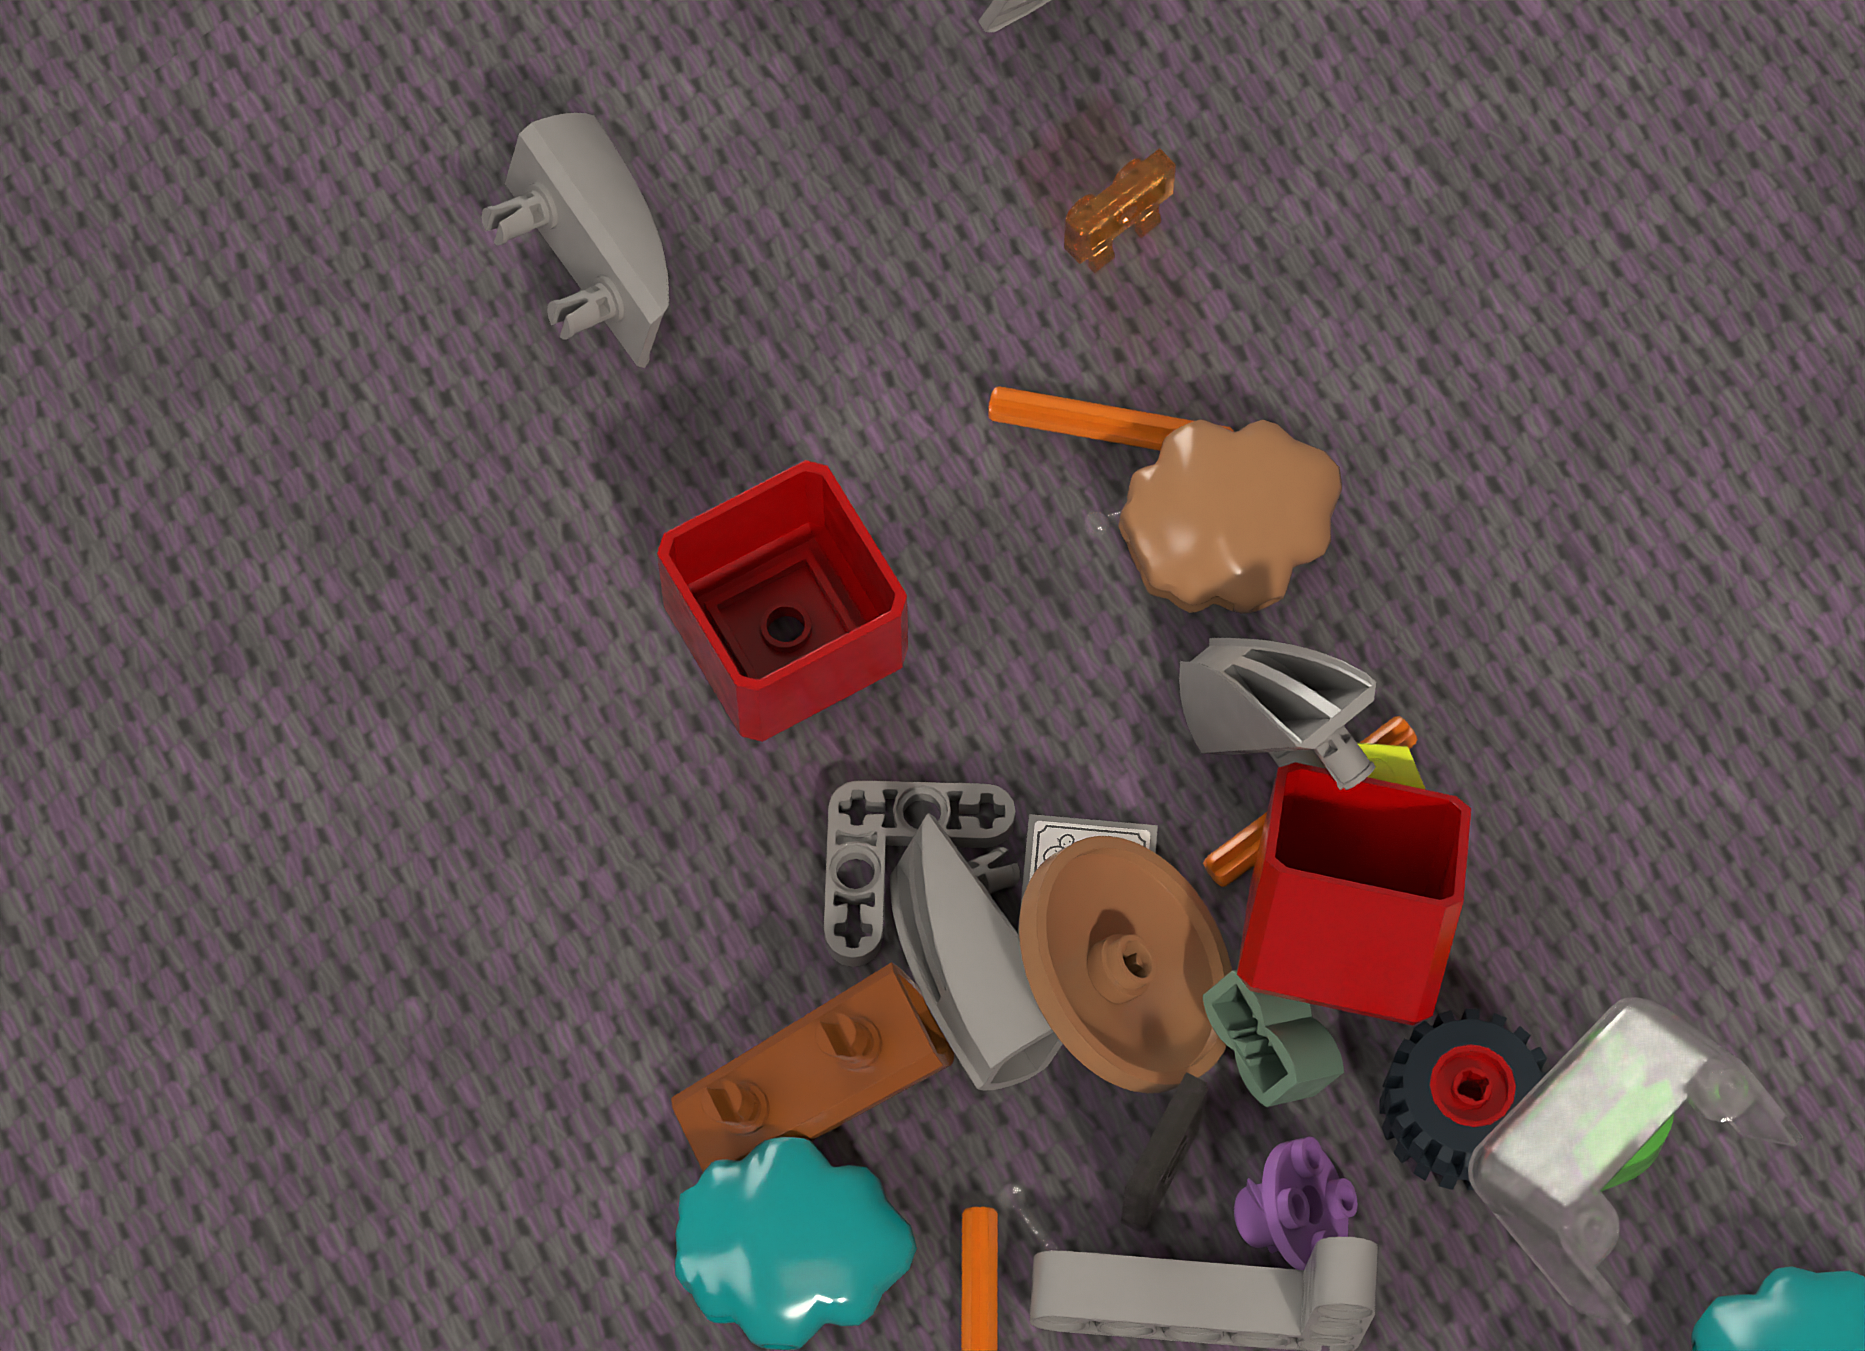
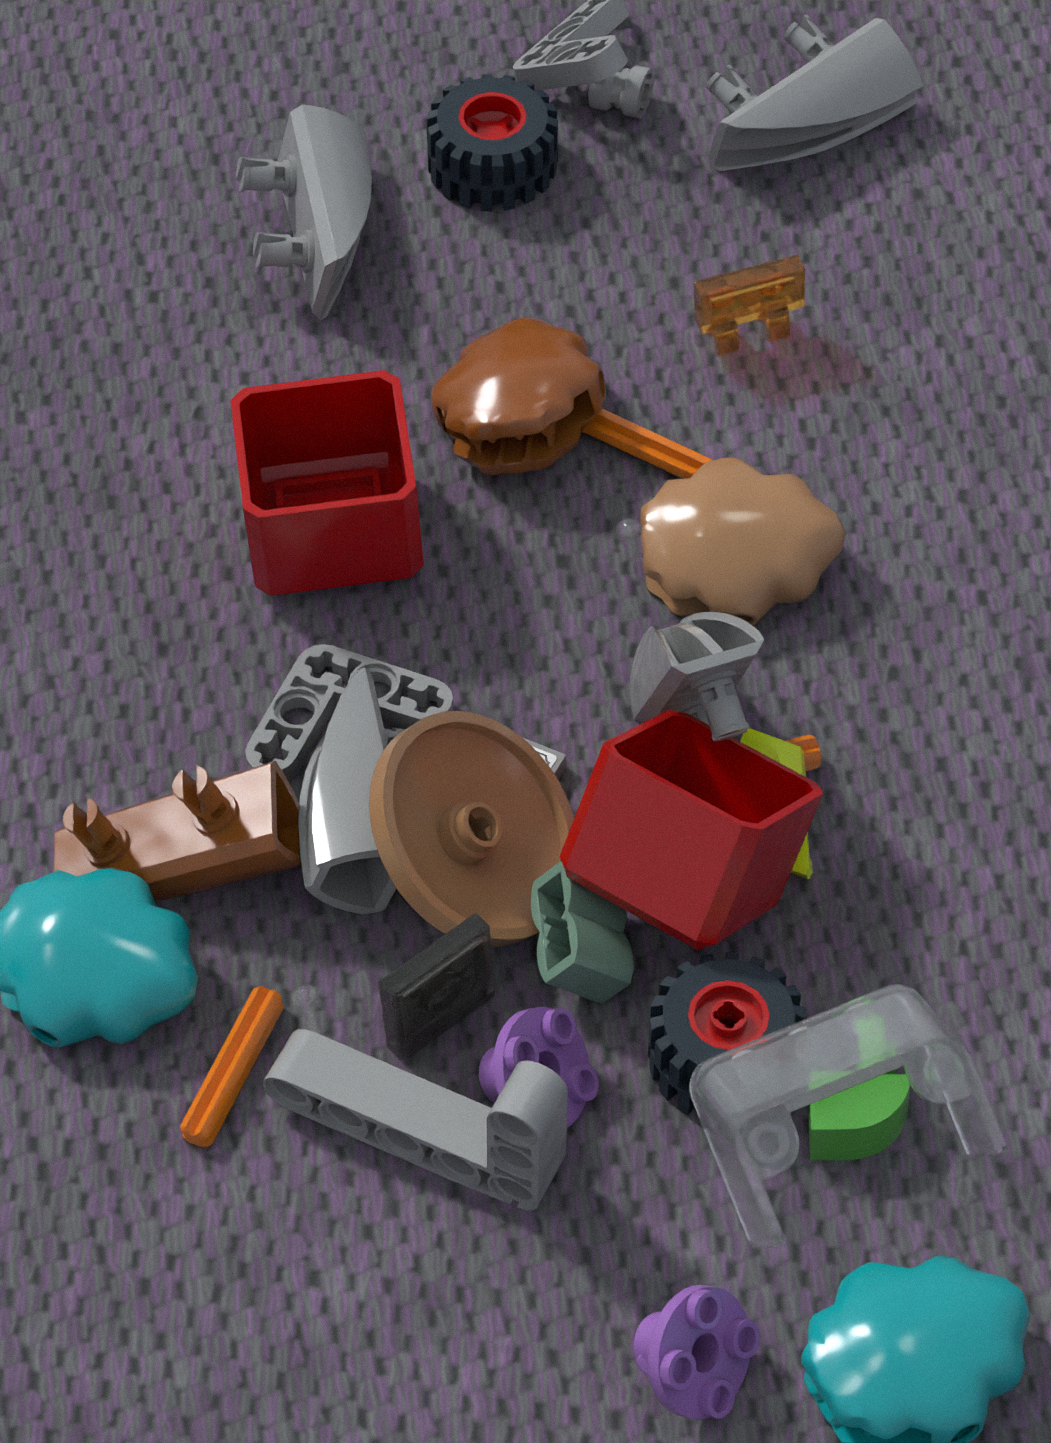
camera: 25 degrees right, 15 degrees down
(741, 84) = (492, 141): none -> black wheel
(921, 408) = (519, 397): none -> dark orange piece

